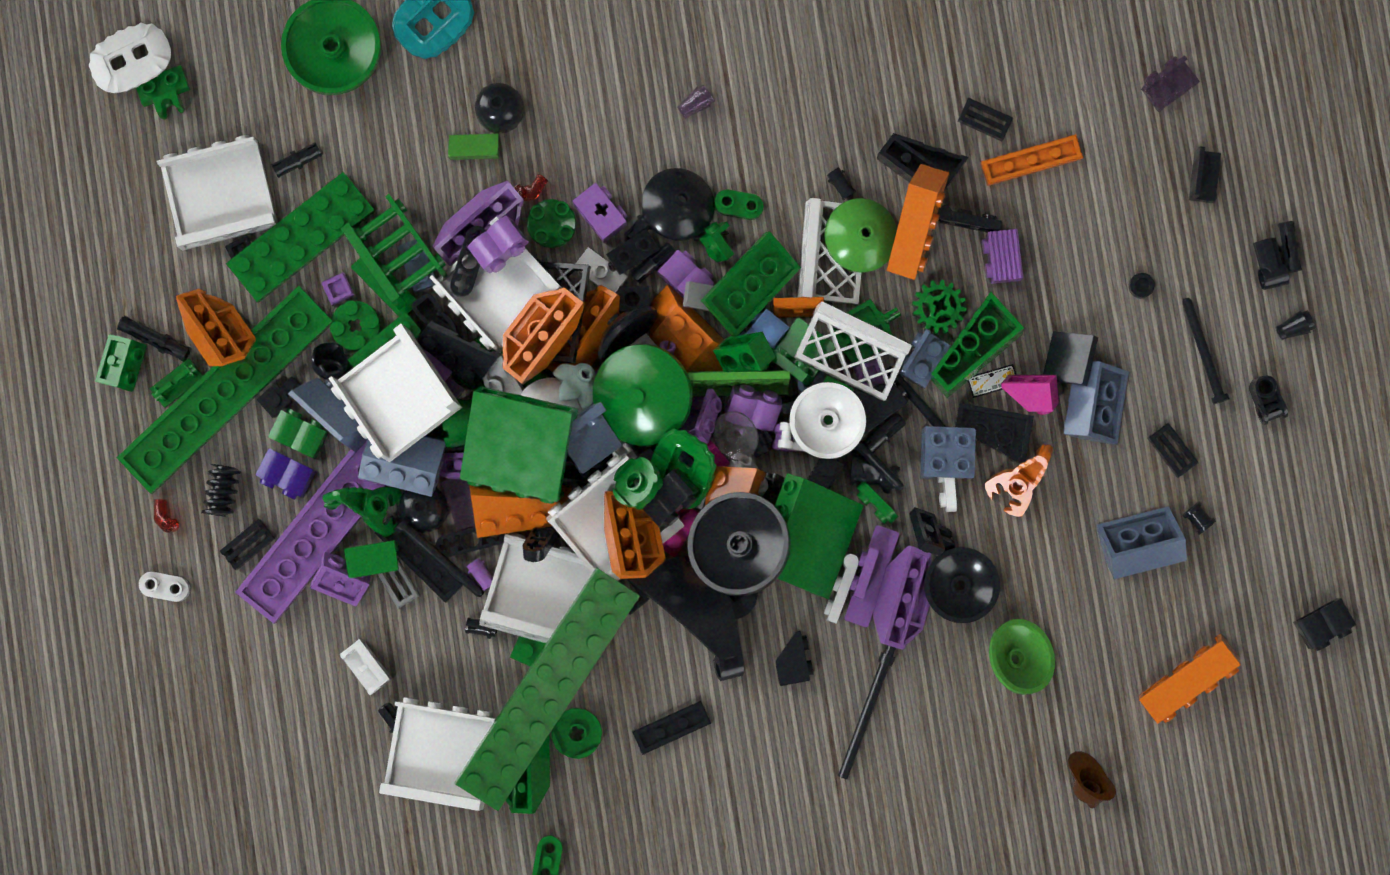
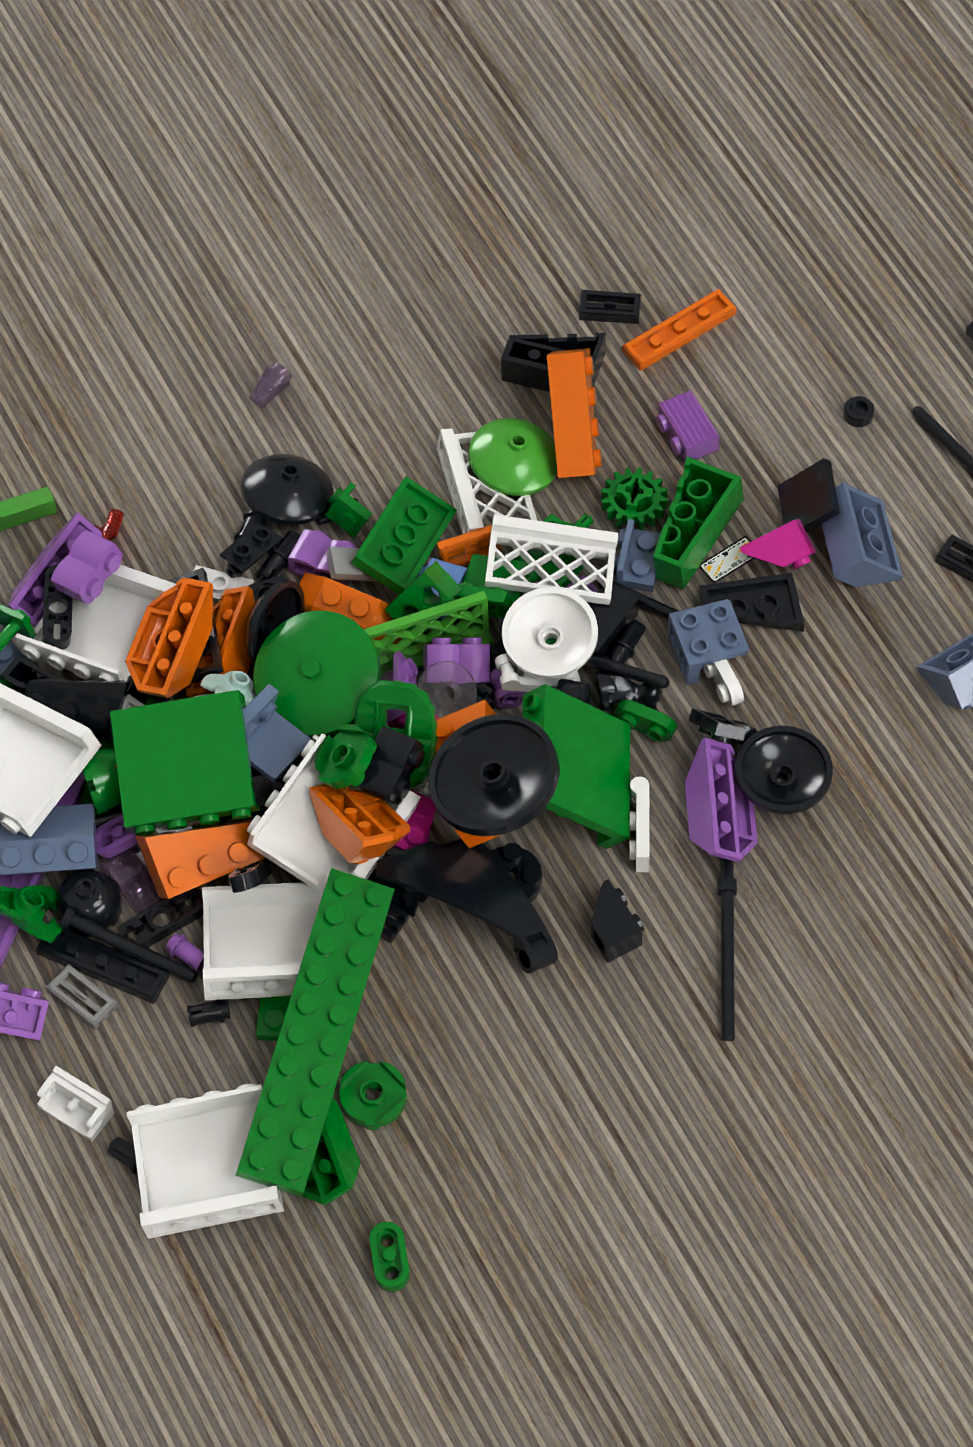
camera: 20 degrees left, 25 degrees down
(372, 559) = (42, 966): green panel -> none
(499, 108) = (39, 458): black cylinder -> none
(551, 223) = (146, 551): green dish -> none
(603, 226) = (197, 525): medium lavender brick -> none
(671, 727) = (491, 1051): black tile -> none
(738, 207) = (359, 471): green plate -> none
(841, 183) = (469, 413): black pin -> none
(868, 583) = (670, 803): medium lavender bracket -> none
(965, 219) = (630, 404): black hinge -> none
(1021, 480) = (806, 641): orange animal -> none
(1031, 655) = (889, 823): bright green dish -> none
(1169, 84) = (801, 211): clear purple bracket -> none
(1204, 176) = (880, 285): black panel -> none

